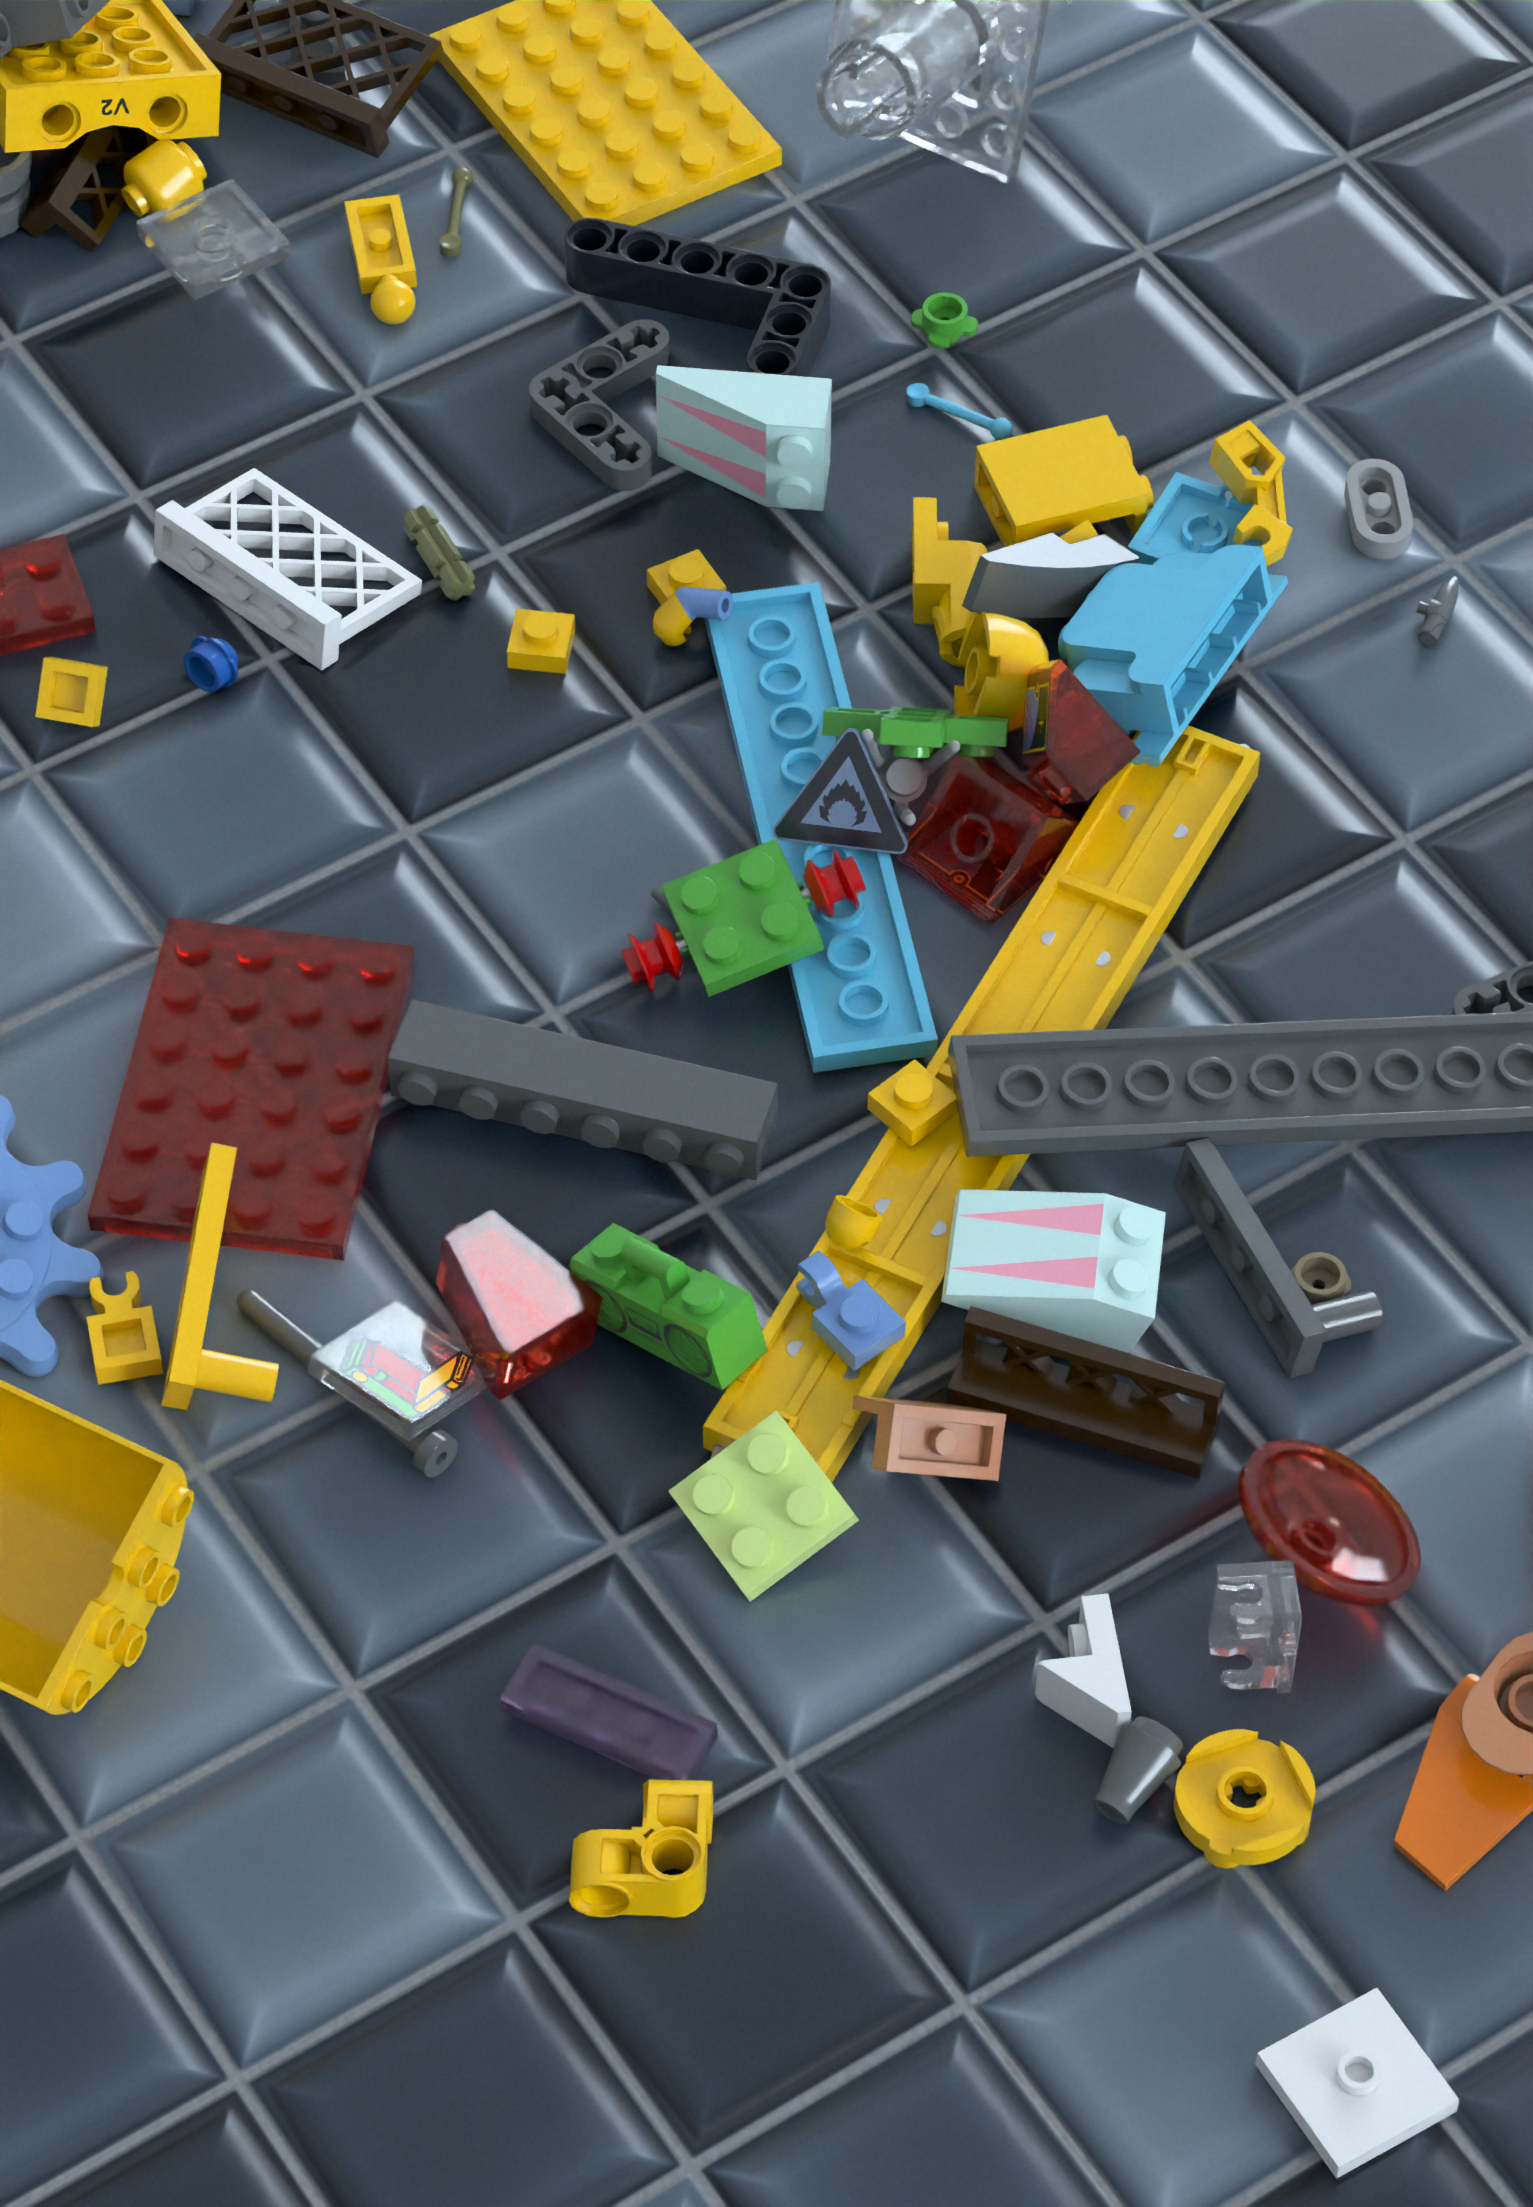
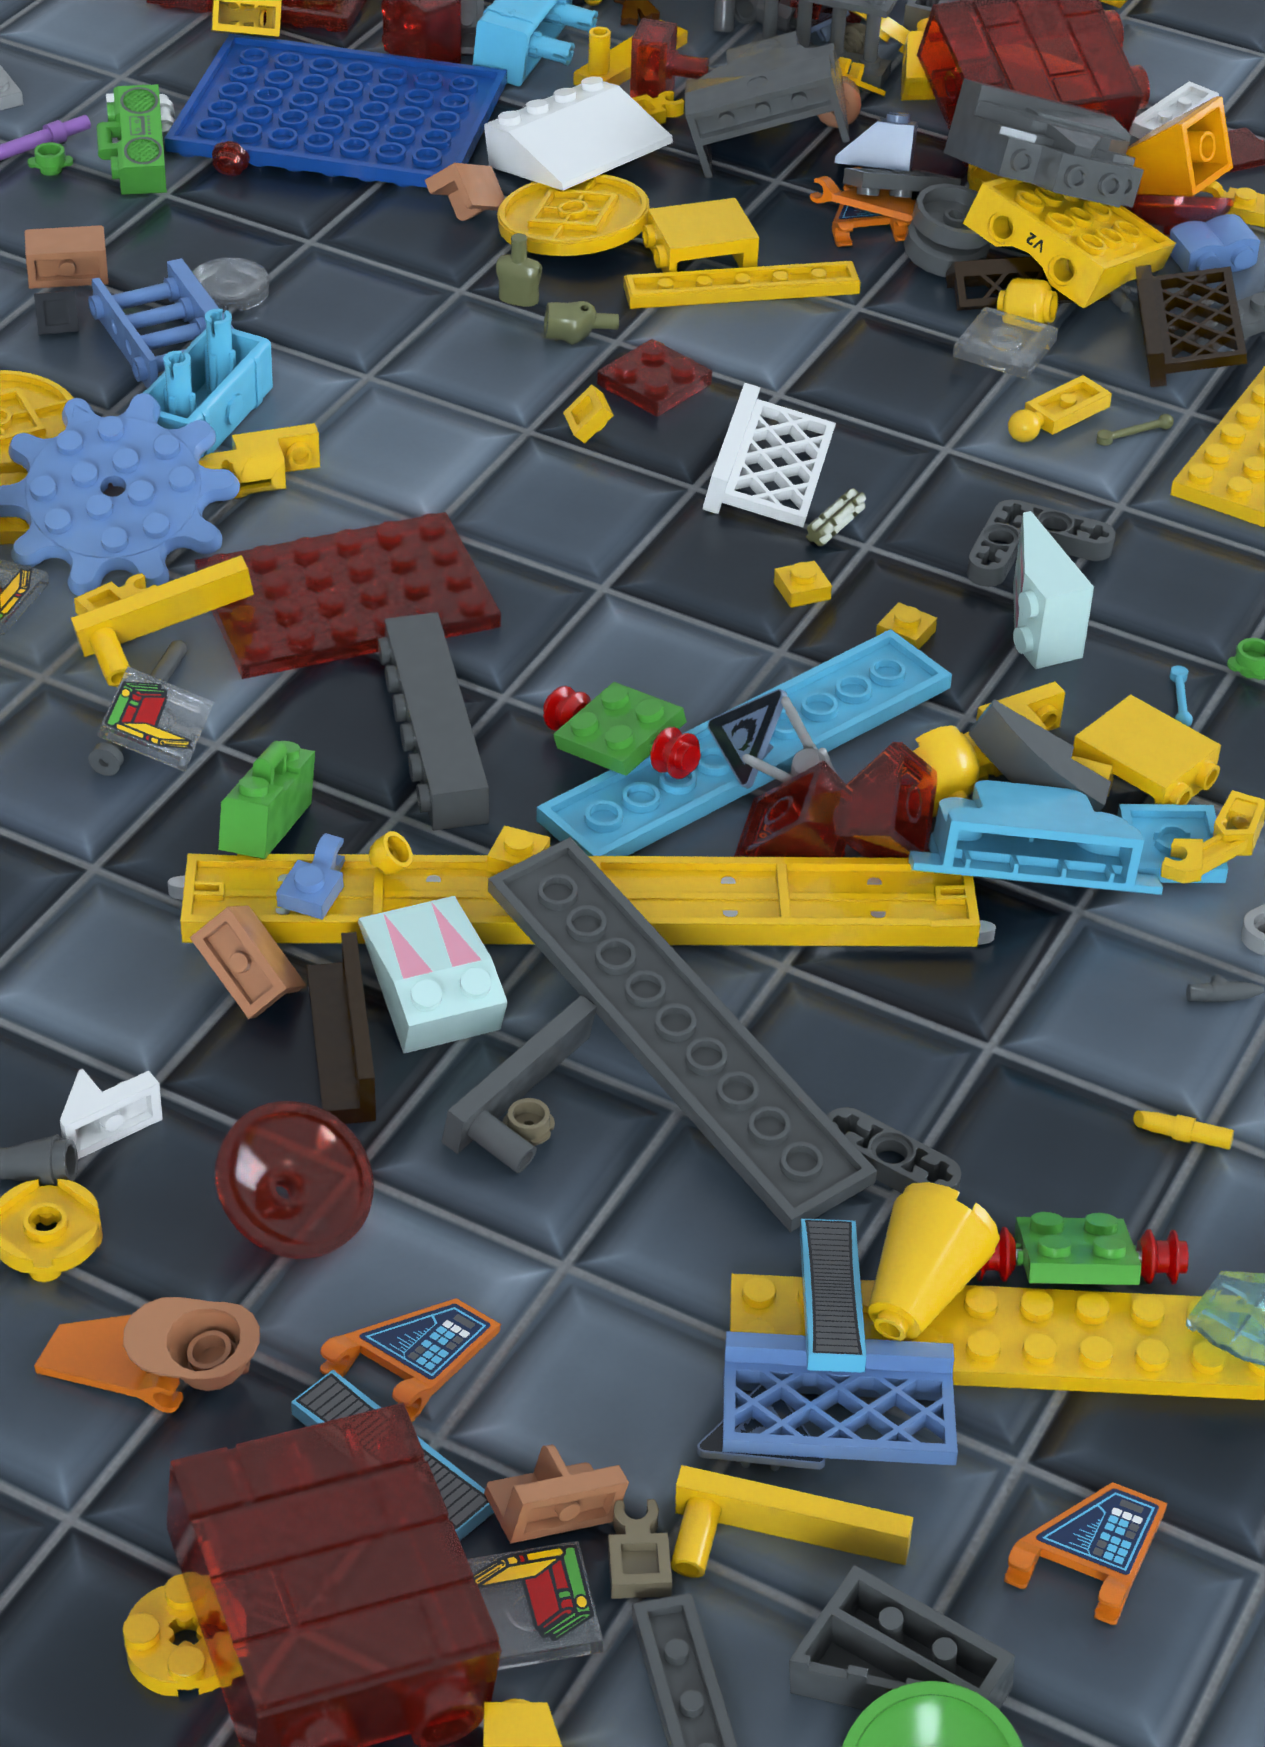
camera: 60 degrees right, 10 degrees down
(211, 663) = (661, 459): blue plate -> none
(513, 1302) = (227, 738): slope -> none
(682, 608) = (870, 626): arm -> none
(710, 282) = (1184, 571): black beam -> none
(763, 1505) = (142, 904): yellowish green plate -> none
(919, 730) = (823, 726): bright green plate -> none
(1258, 1617) = (181, 1170): clear hinge -> none

